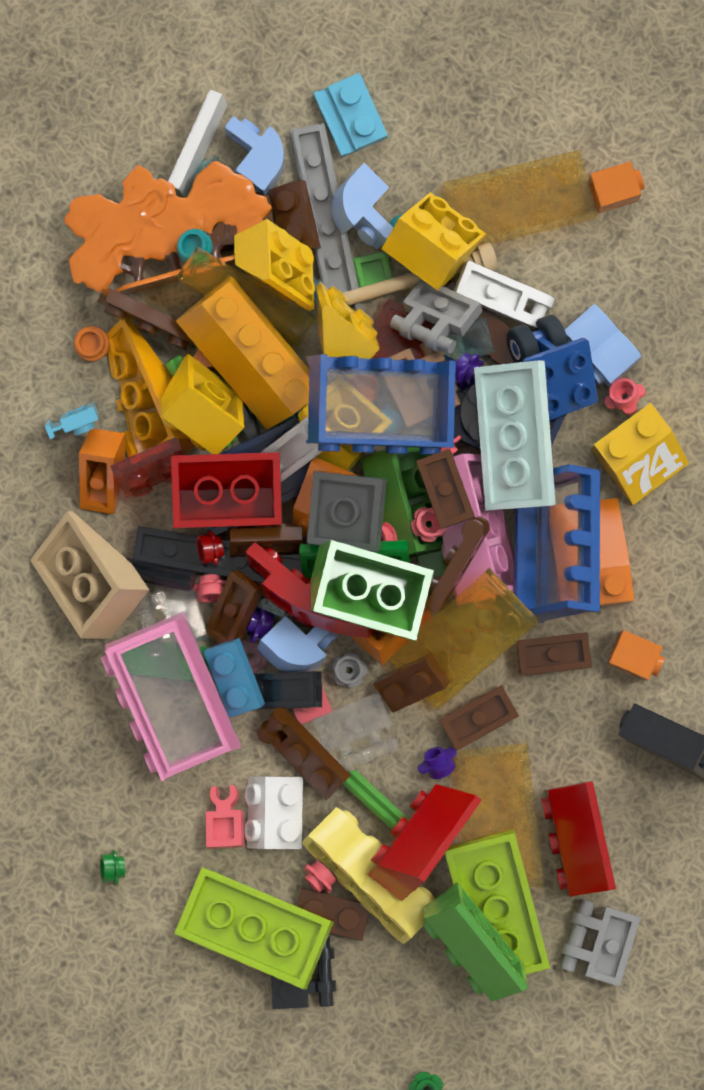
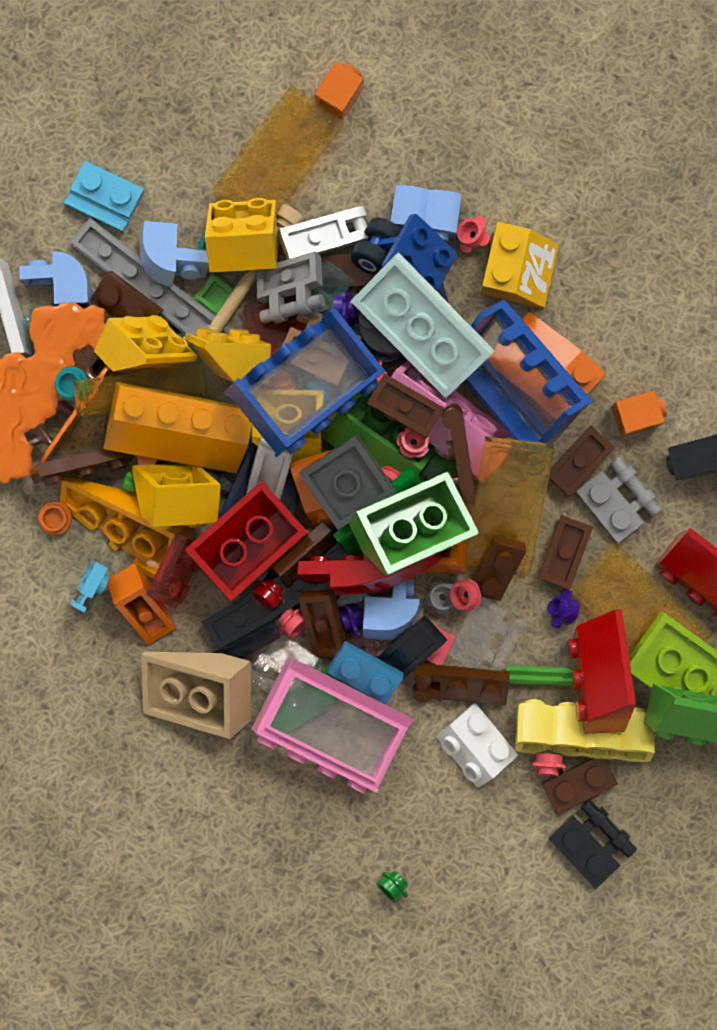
camera: 40 degrees left, 0 degrees up
(225, 824) = (448, 784): coral plate -> none
(254, 928) = (534, 842): lime plate -> none
(367, 683) = (459, 594): none -> coral plate
(547, 712) = (611, 507): none -> light grey plate

